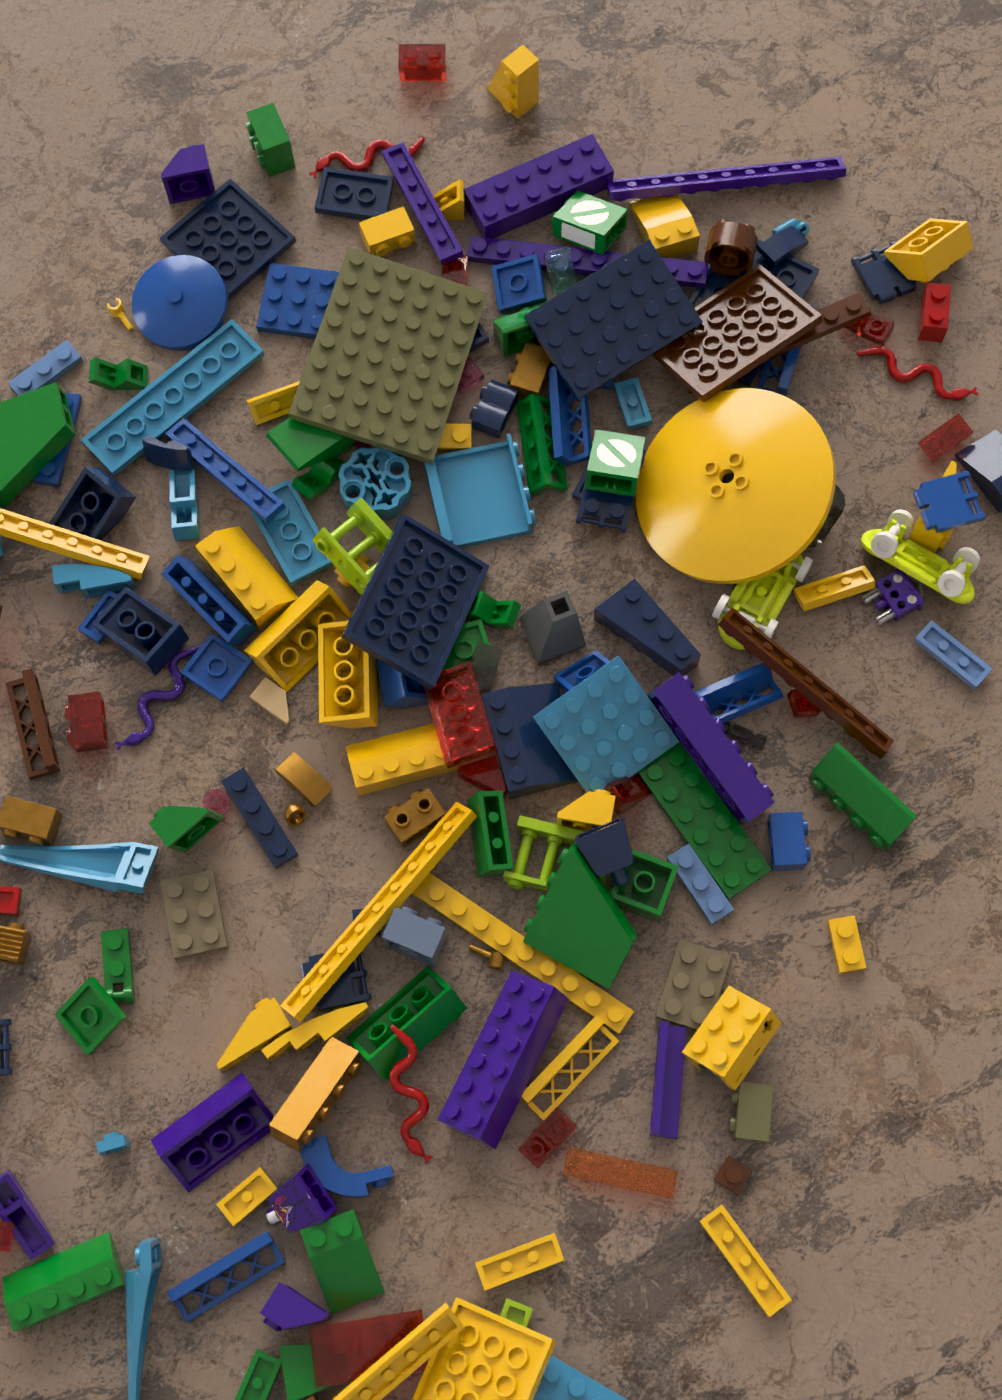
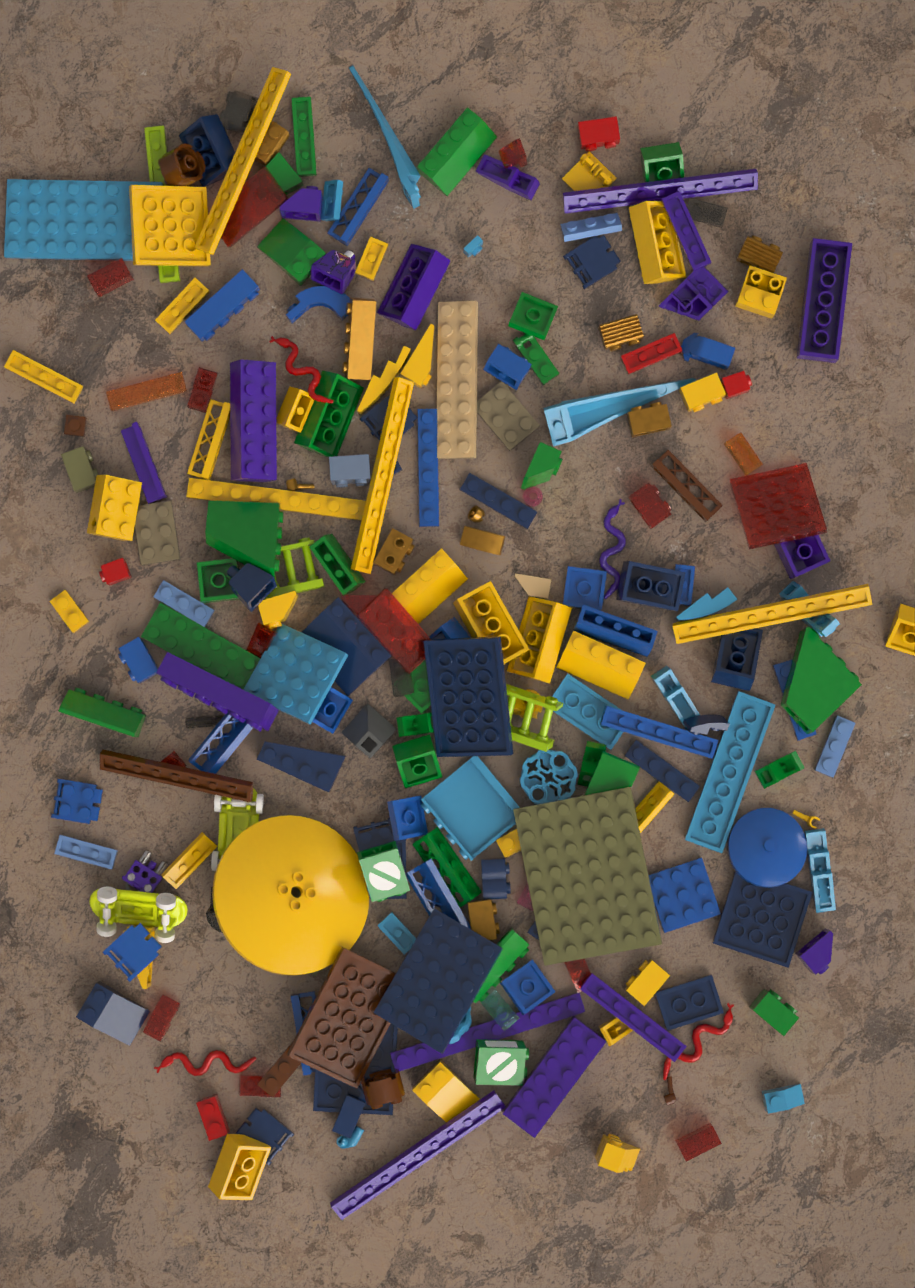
camera: 150 degrees right, 15 degrees up
(139, 256) = (820, 870): none -> dark azure slope
(156, 969) = (507, 366): none -> blue brick
(226, 988) = (457, 379): none -> tan plate
(246, 434) = (662, 771): none -> dark blue plate
(248, 1309) = (332, 200): none -> dark azure plate
(313, 64) = (782, 1098): none -> dark azure slope
(320, 900) = (428, 468): none -> blue plate
(427, 116) = (670, 1098): none -> reddish brown hand
(444, 1048) = (294, 409): none -> yellow brick
(468, 1233) = (222, 306): none -> blue brick
(514, 571) = (417, 761): none -> green slope
(558, 512) = (407, 818): none -> blue plate
(595, 1349) = (110, 277): none -> clear red brick
(767, 962) = (115, 572): none -> red brick
(937, 717) = (77, 801): none -> blue plate

